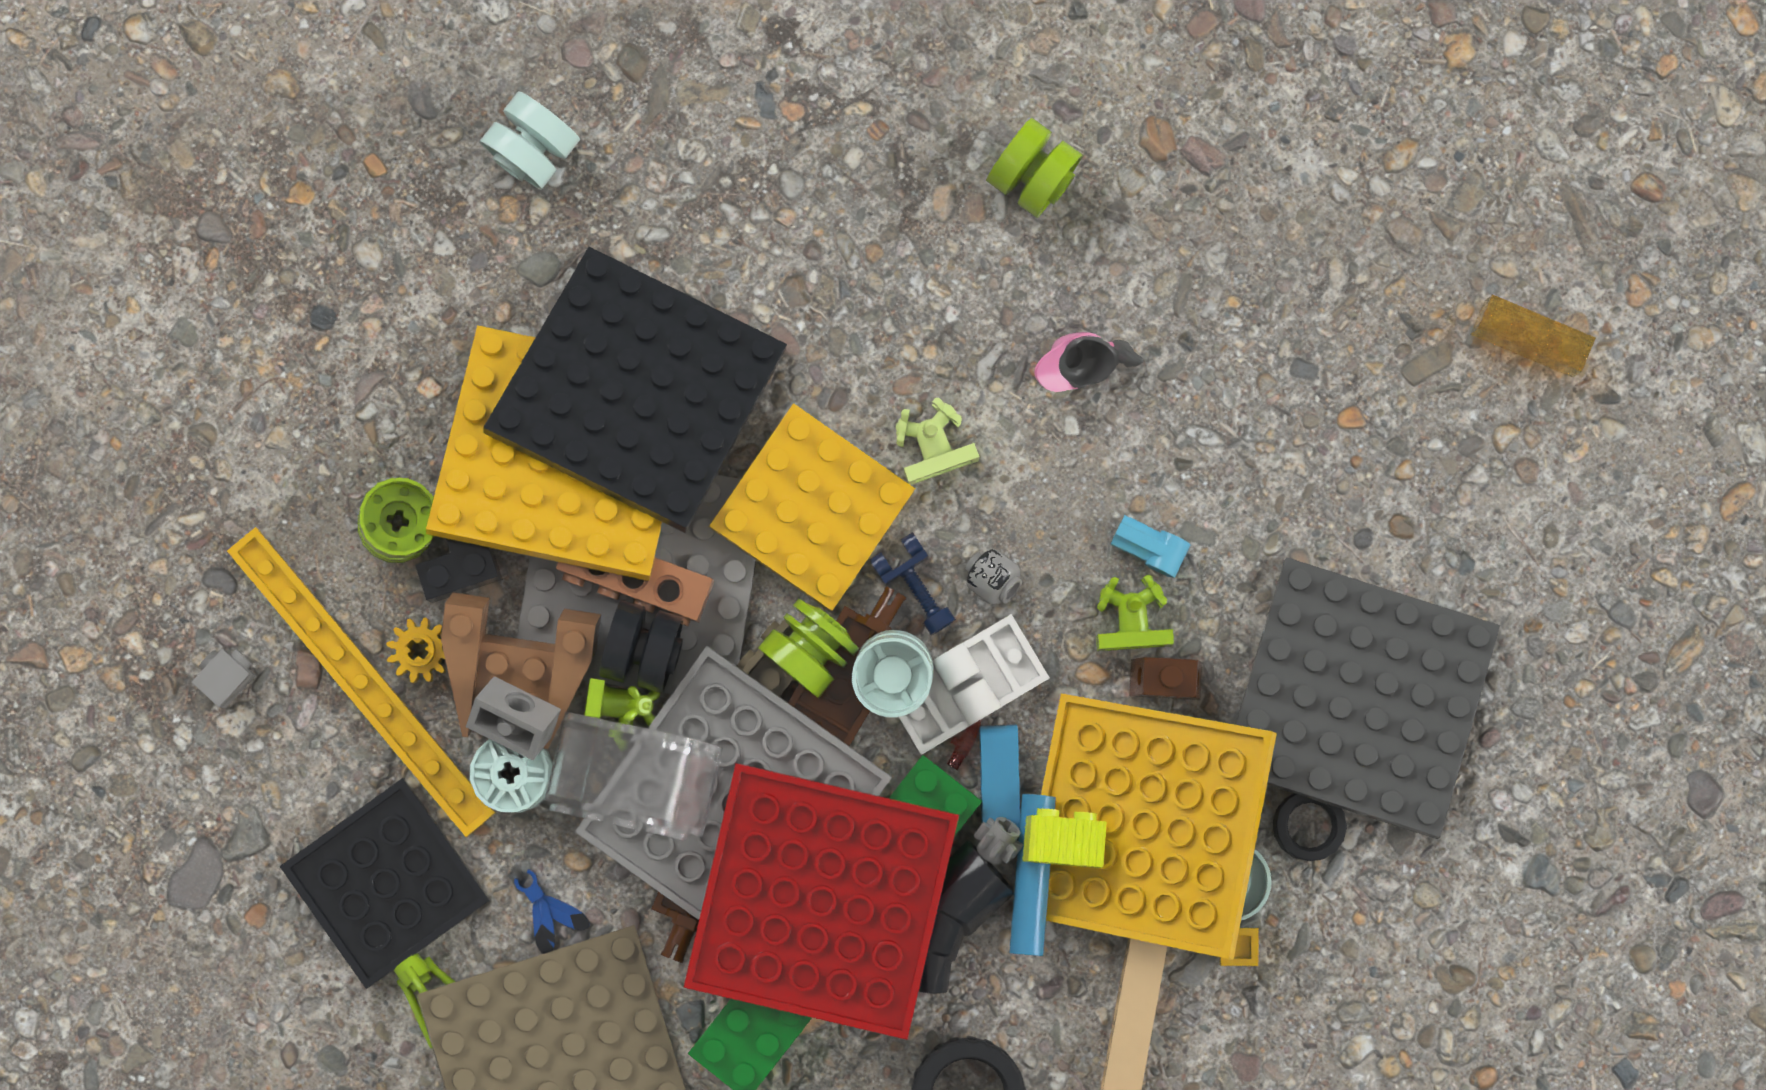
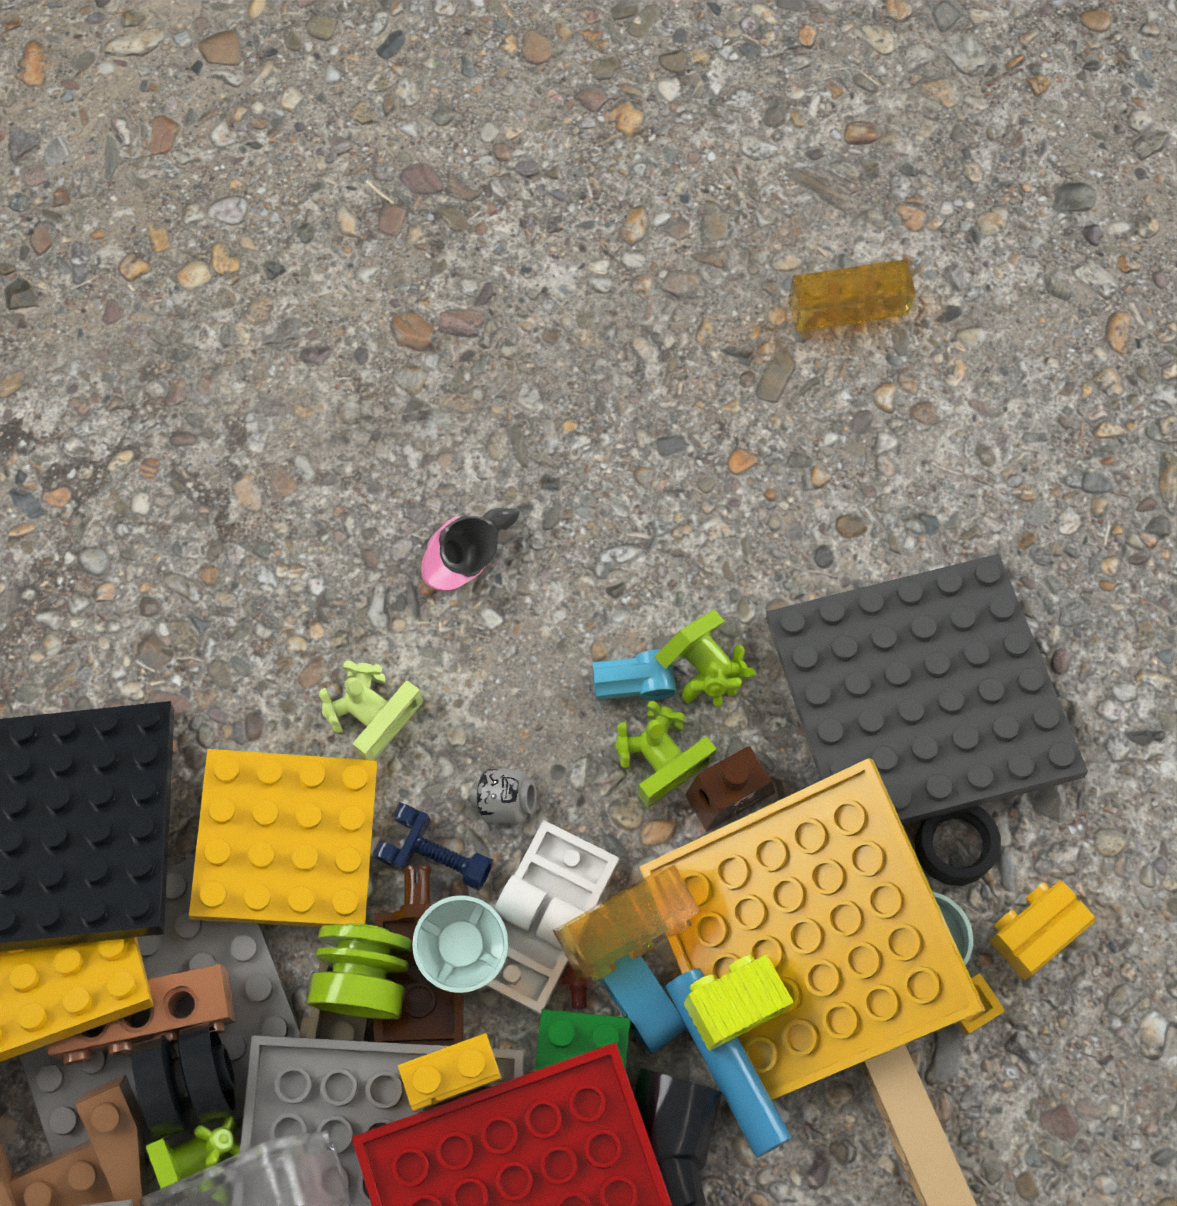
camera: 30 degrees left, 15 degrees down
(830, 762) = (449, 1072): none -> yellow brick
(998, 840) = (671, 1047): light grey gear -> none
(1022, 733) = (627, 923): none -> clear yellow brick
(1043, 173) = (299, 405): lime wheel -> none
(1213, 570) = (708, 658): none -> lime piece
(1326, 926) = (1041, 929): none -> yellow brick

